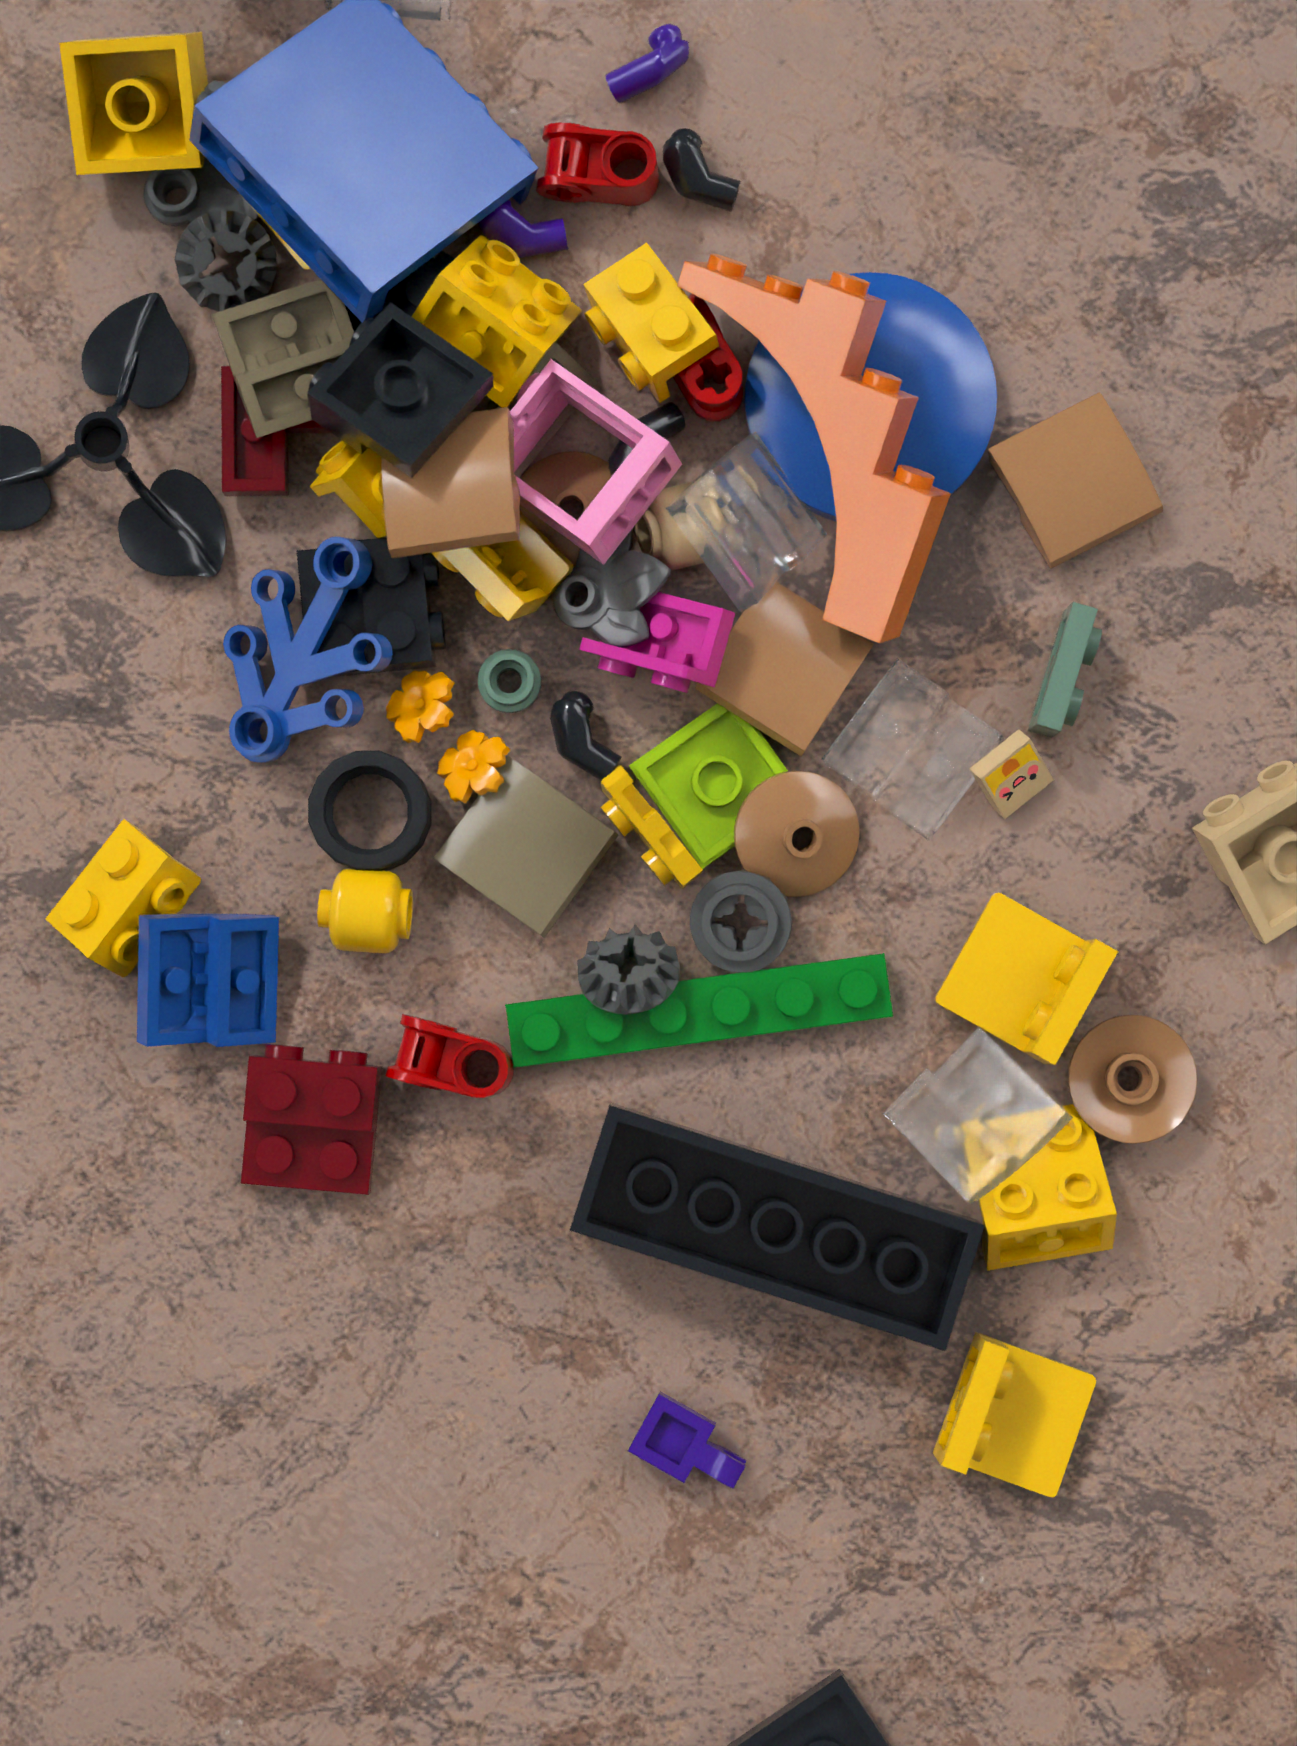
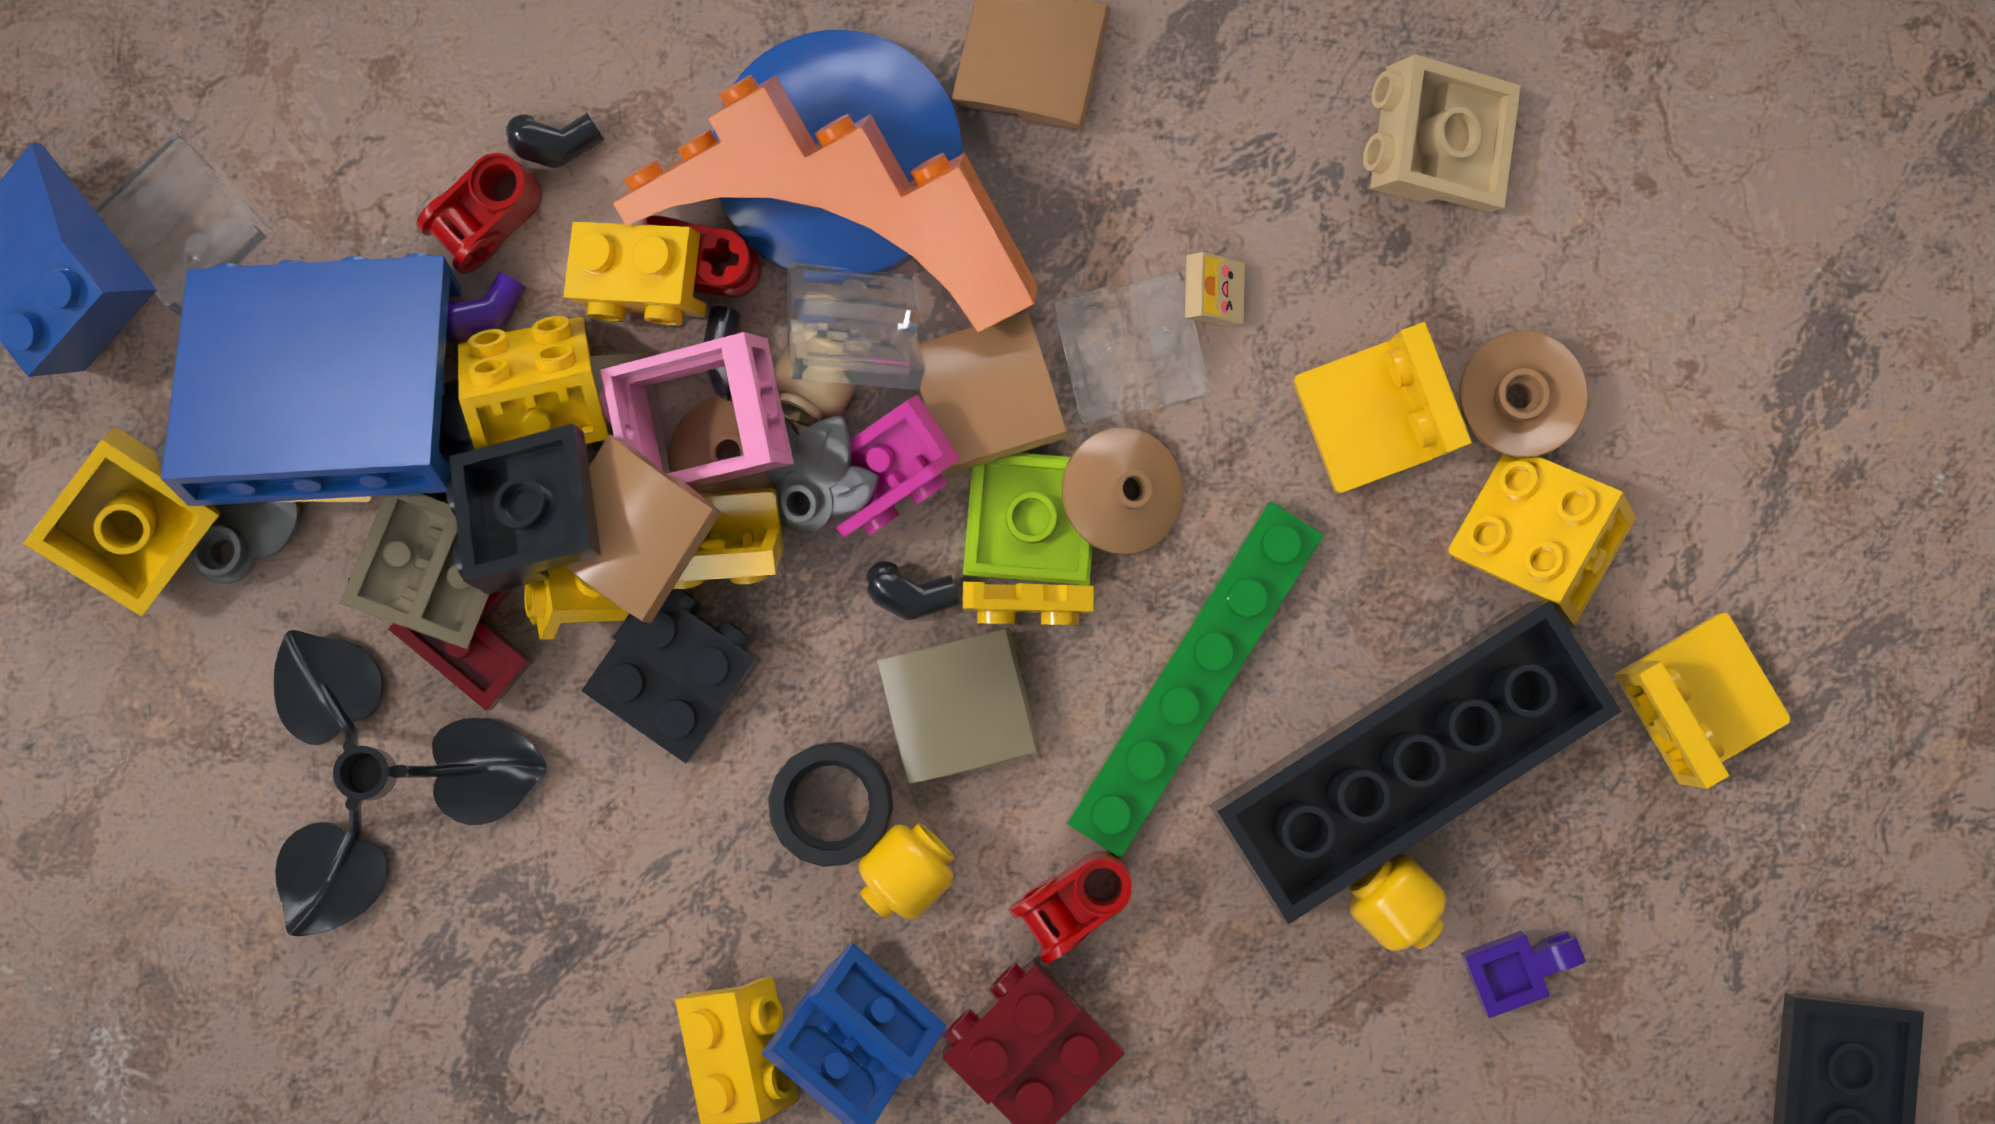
camera: 50 degrees left, 0 degrees up
(234, 233) = (293, 531): dark grey gear -> none
(297, 657) = (663, 760): blue plant -> none
(420, 704) = (781, 695): light orange plant -> none
(473, 765) = (862, 694): light orange plant -> none
(506, 661) = (800, 611): sand green plate -> none
(645, 986) = (1145, 701): dark grey gear -> none
(652, 68) = (442, 106): dark purple arm -> none
(657, 1307) = (1399, 904): none -> yellow head
(719, 941) = (1155, 619): dark grey gear -> none
(977, 1116) = (1456, 535): clear slope -> none
(1073, 645) = (1157, 161): sand green plate -> none

